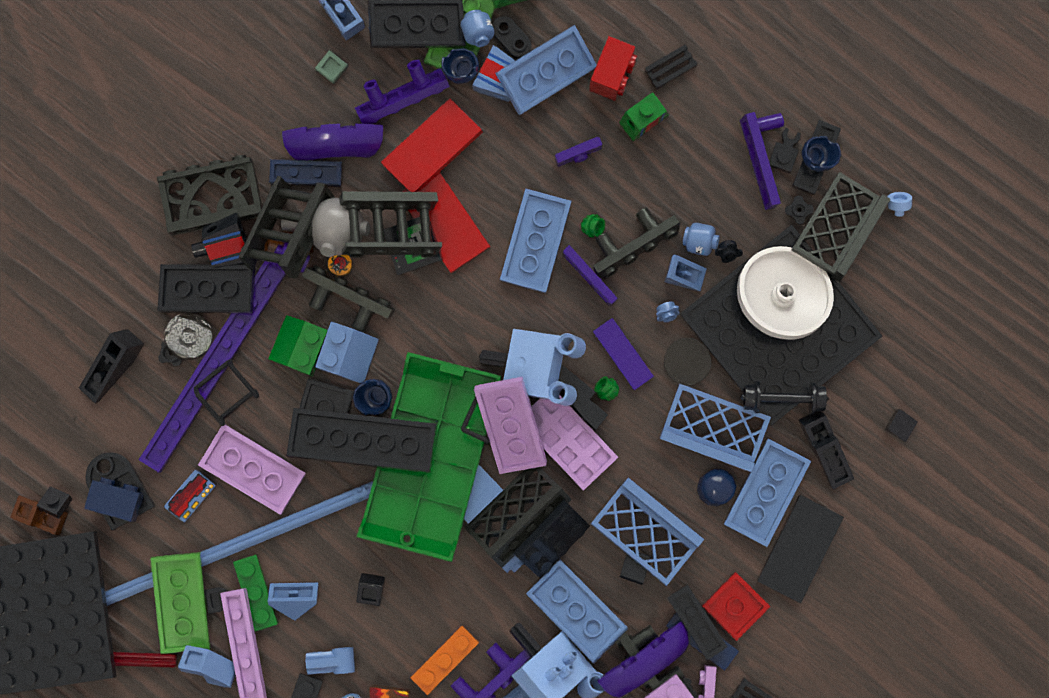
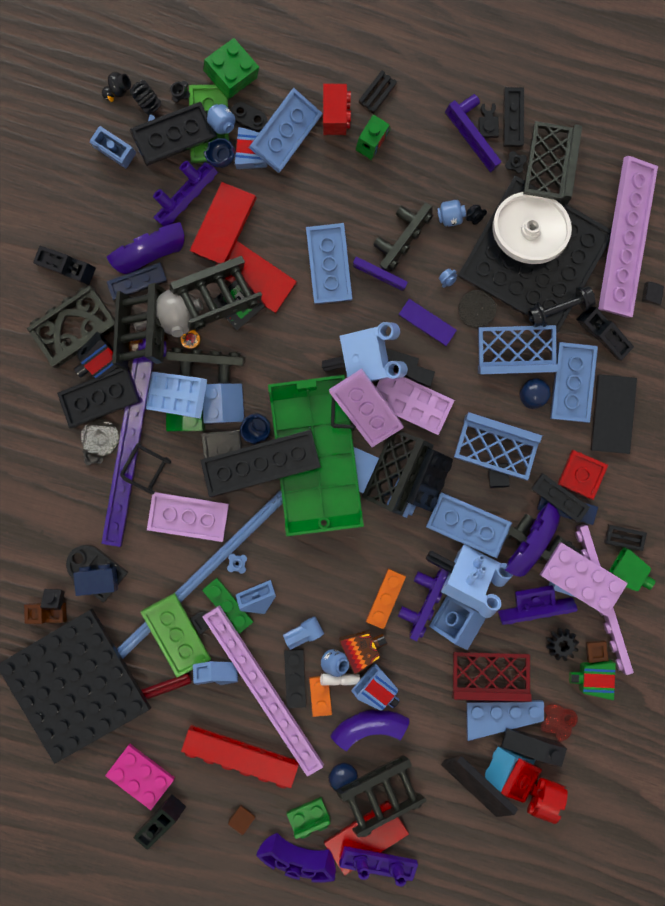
camera: 25 degrees left, 5 degrees up
(111, 363) = (51, 481): black slope -> none
(189, 495) = (150, 554): slope -> none
(230, 122) = (64, 265): none -> black slope
(293, 545) = (237, 558): none -> medium blue plate
(297, 321) = (176, 394): none -> light blue plate
(331, 67) = (123, 193): sand green tile -> none
(370, 589) = (310, 569): black slope -> none
(579, 152) = (334, 184): dark purple plate -> none
(593, 225) = (367, 235): green plate -> none
(606, 389) = (425, 353): green plate -> none
(685, 273) = (449, 244): medium blue slope -> none
(821, 154) = (517, 111): dark blue hair -> none
(895, 348) = (628, 237): none -> lavender plate
(900, 202) = (589, 126): light blue tile -> none

